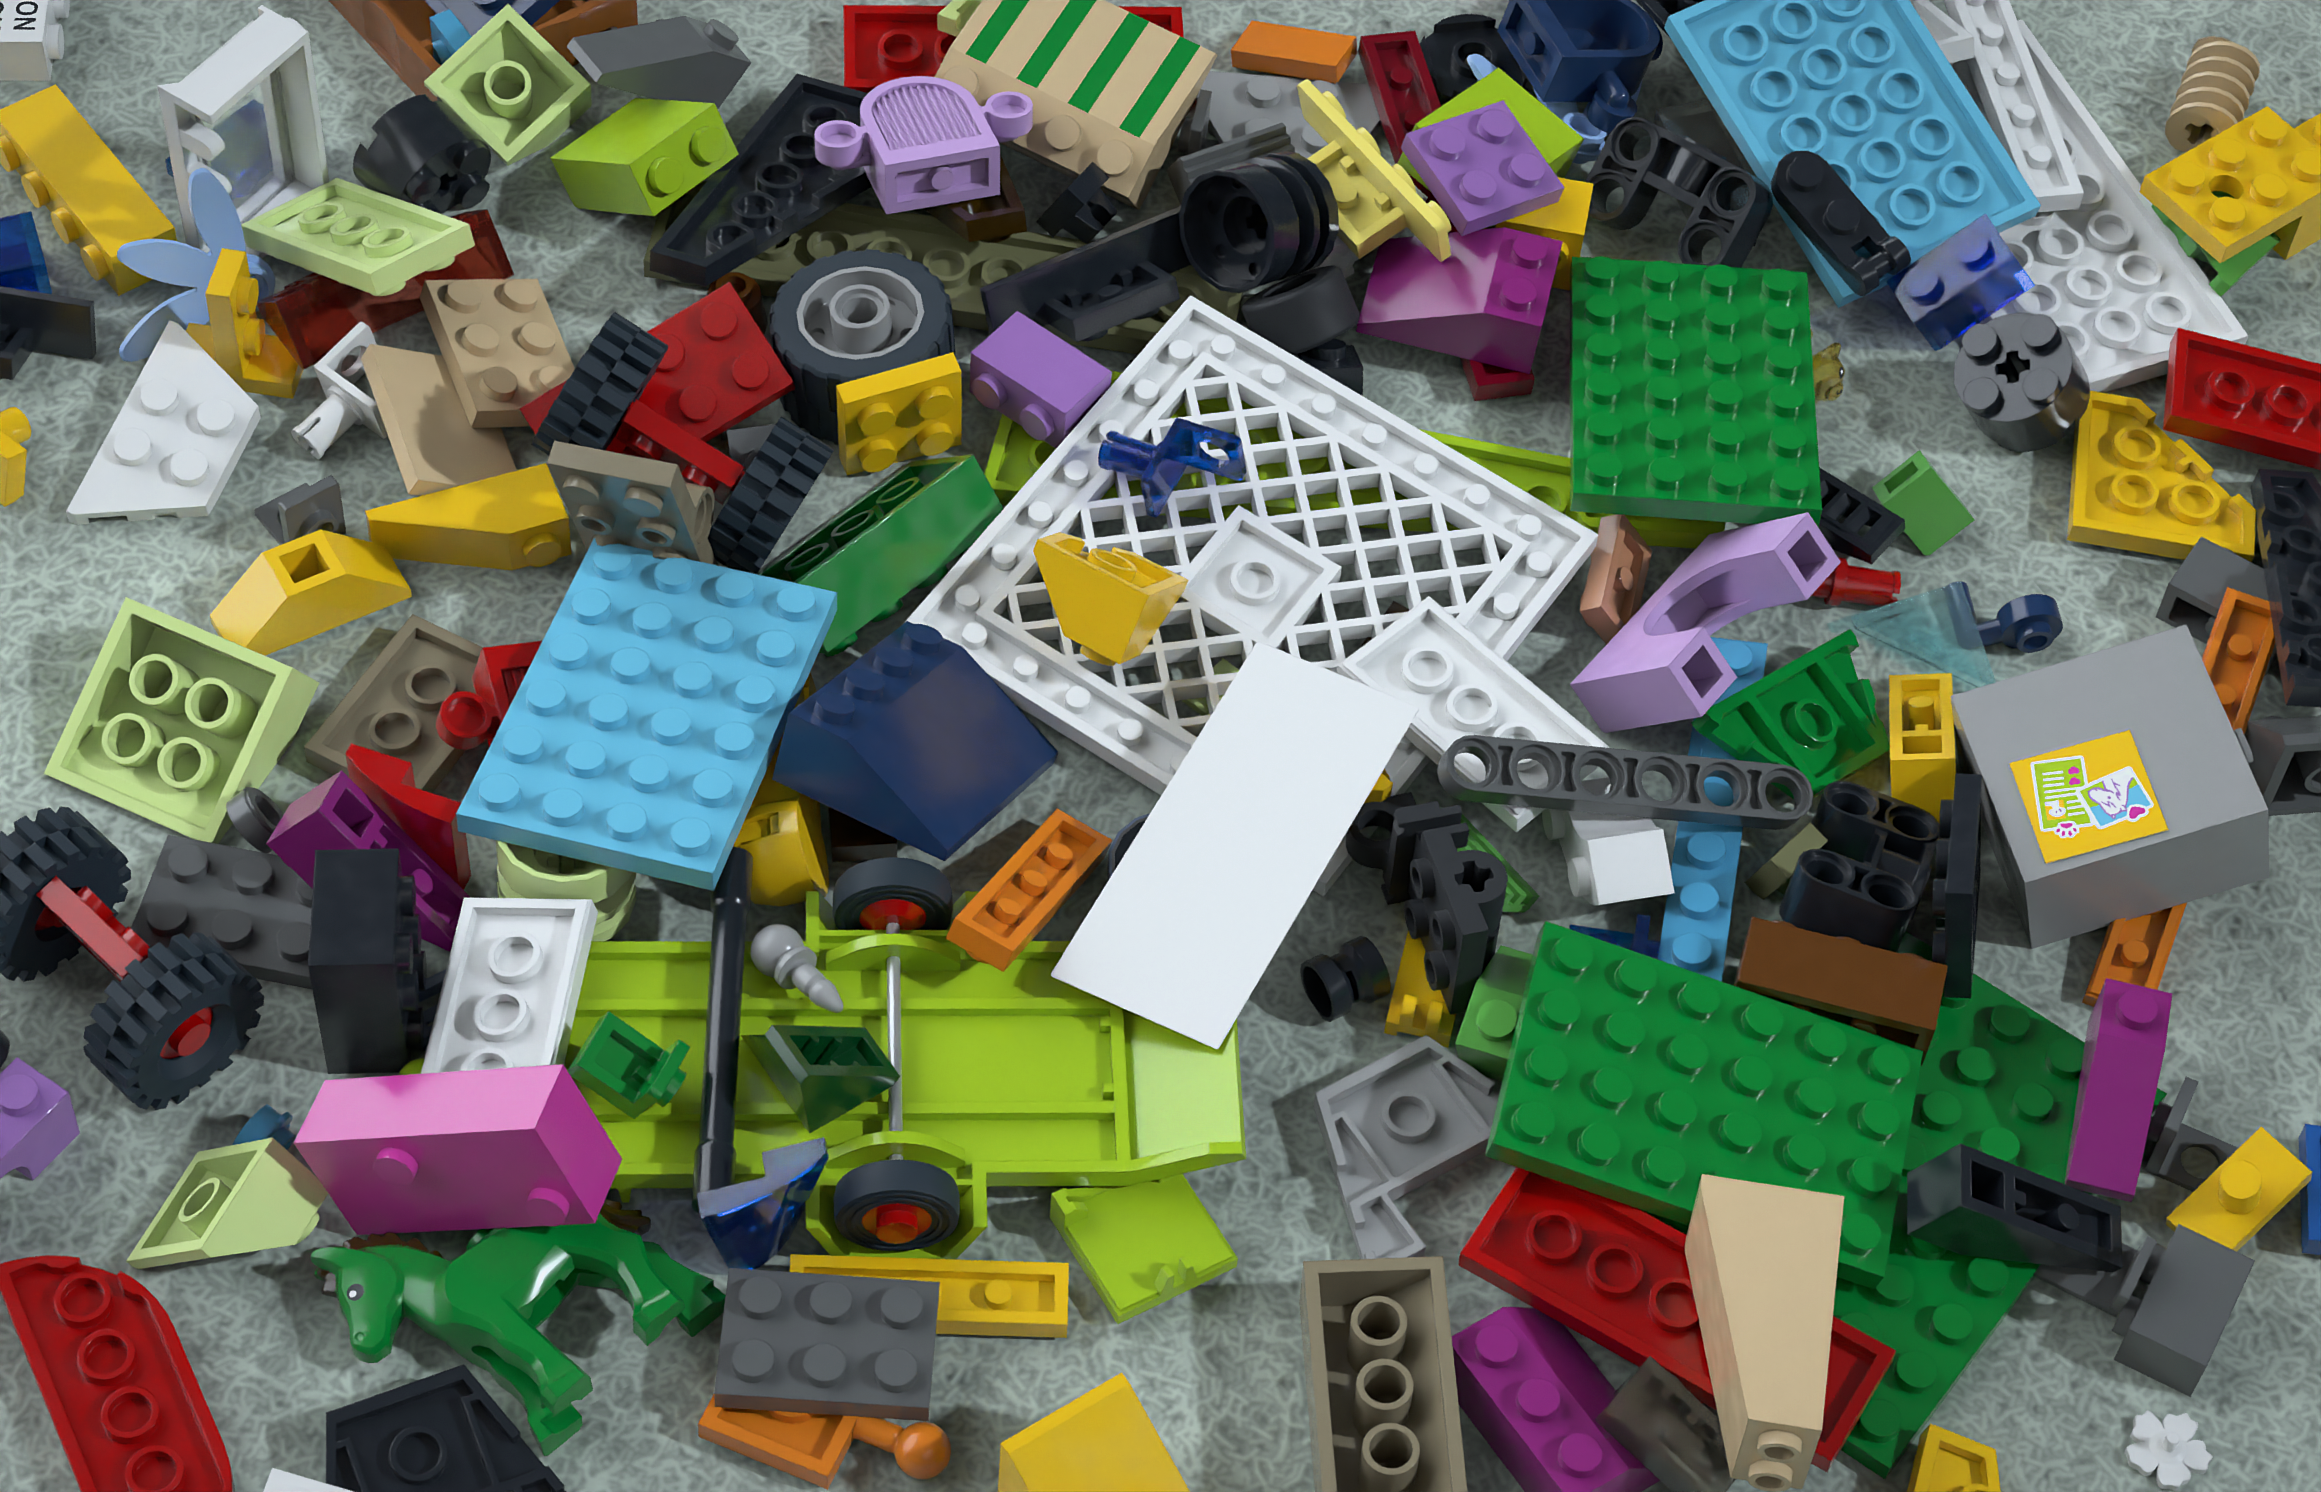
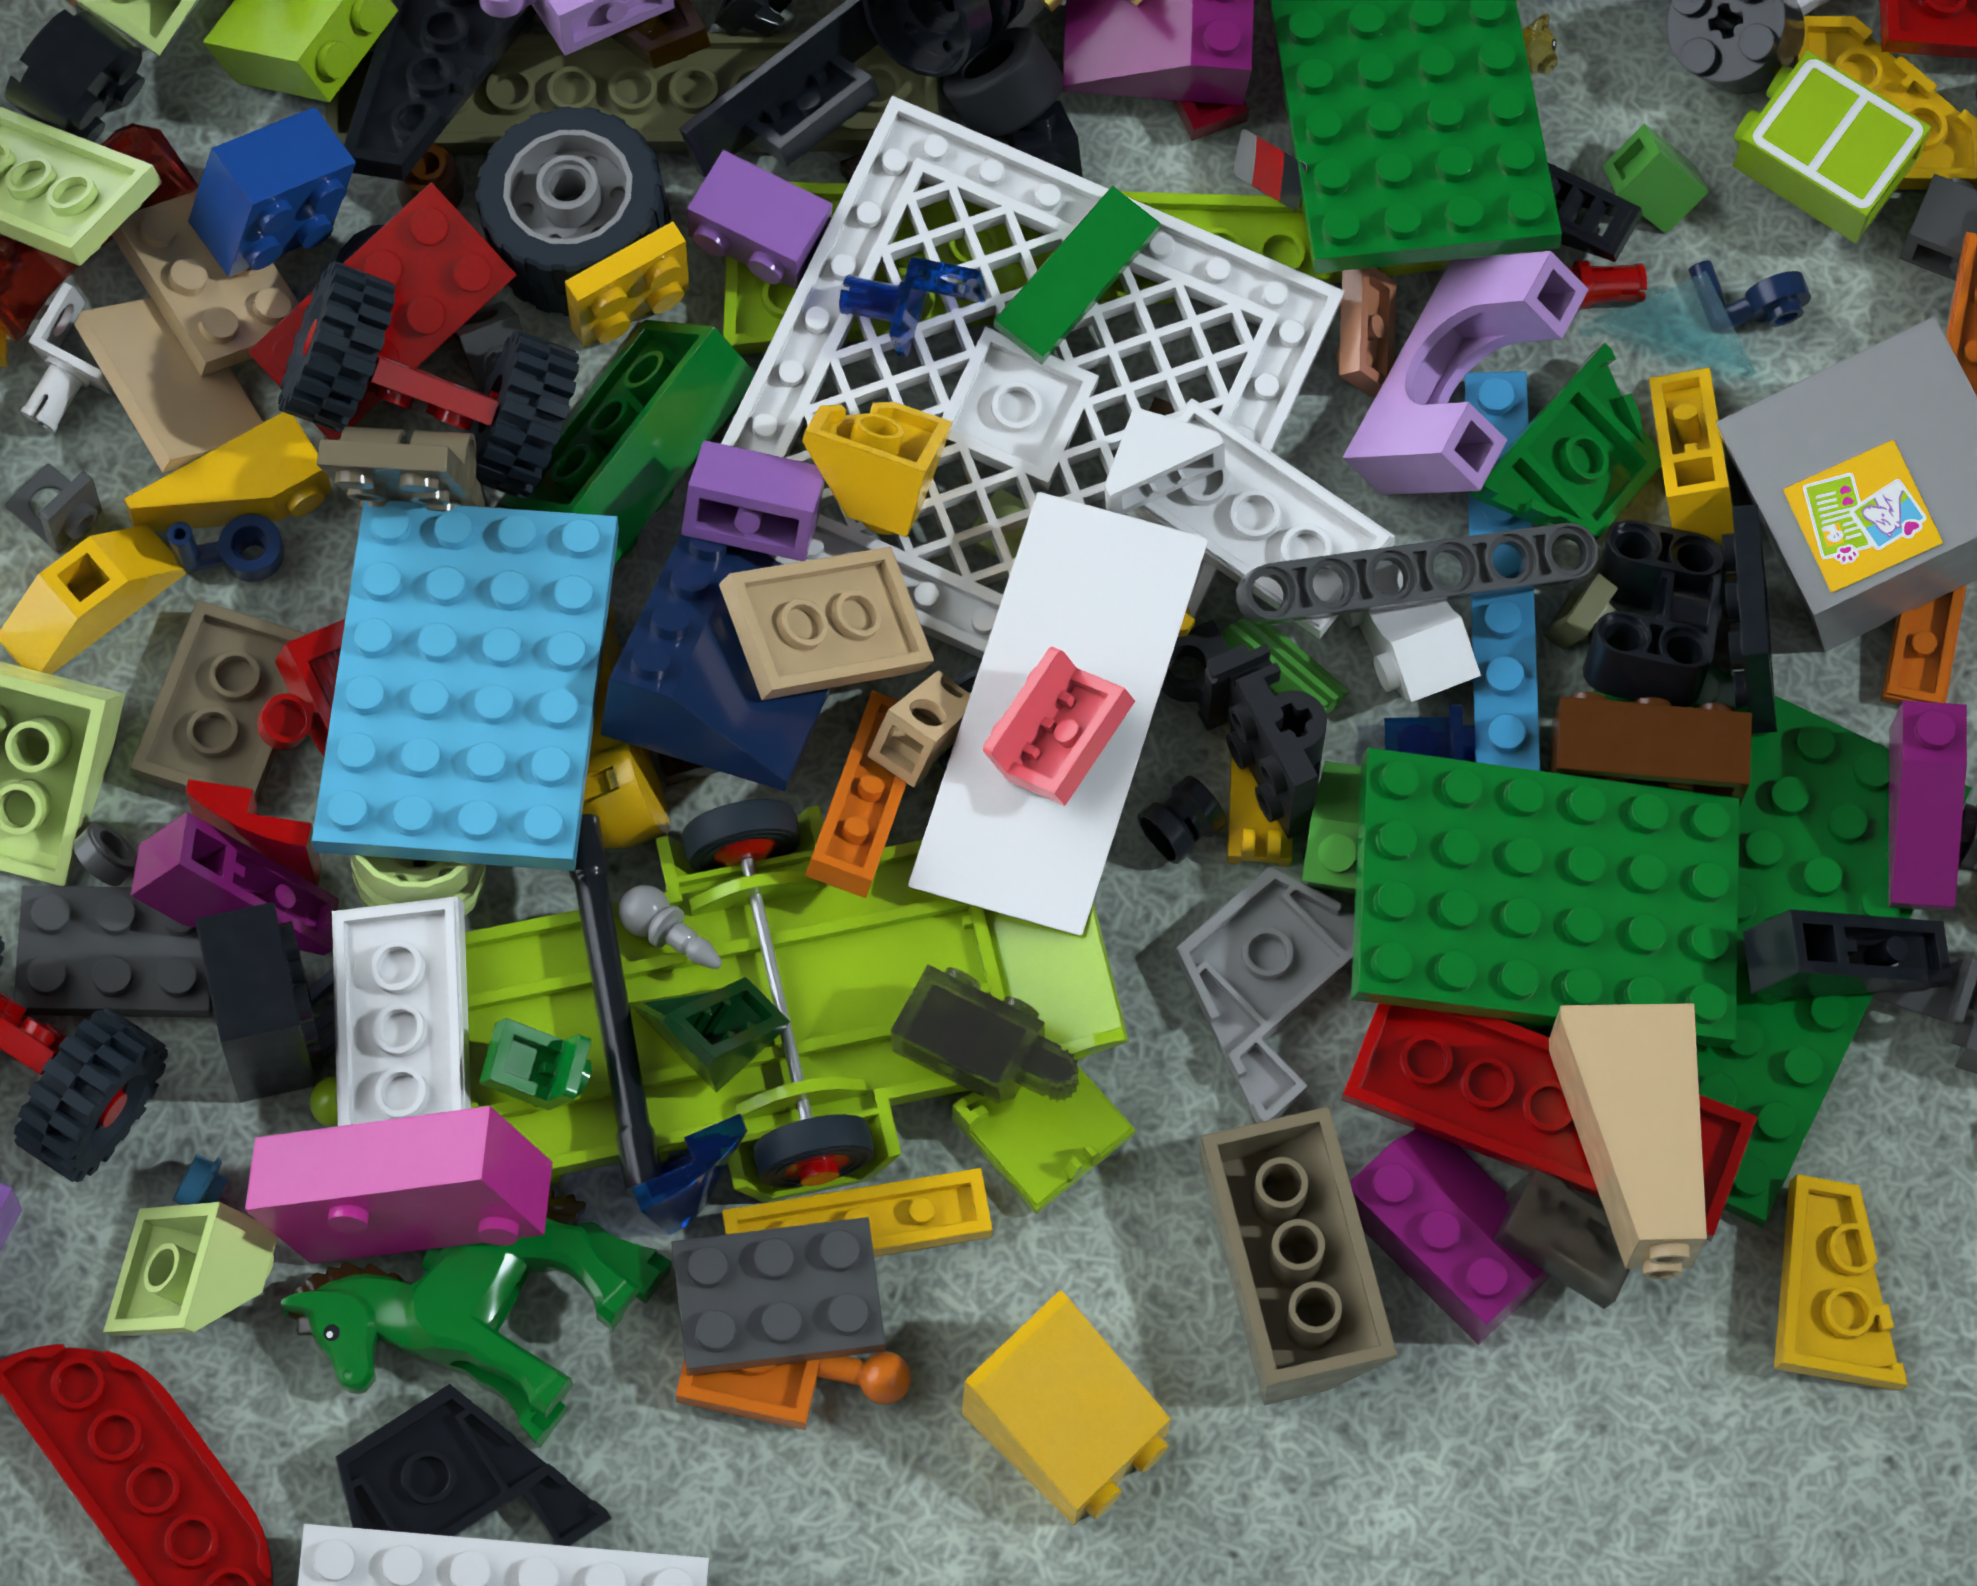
camera: 10 degrees left, 15 degrees up
(460, 580) = (228, 551): none -> dark blue plate
(575, 271) = (271, 192): none -> blue brick
(974, 605) = (753, 501): none -> medium lavender brick
(1021, 722) = (826, 622): none -> tan plate
(1091, 838) = (920, 728): none -> tan leg
(1091, 1126) = (980, 1039): none -> clear smoke hinge
(1229, 843) = (1056, 727): none -> coral bracket
(1336, 473) = (1076, 275): none -> green tile
(1386, 634) = (1158, 458): none -> white slope
(1543, 427) = (1268, 169): none -> sticker
(2100, 494) = (1829, 145): none -> lime brick

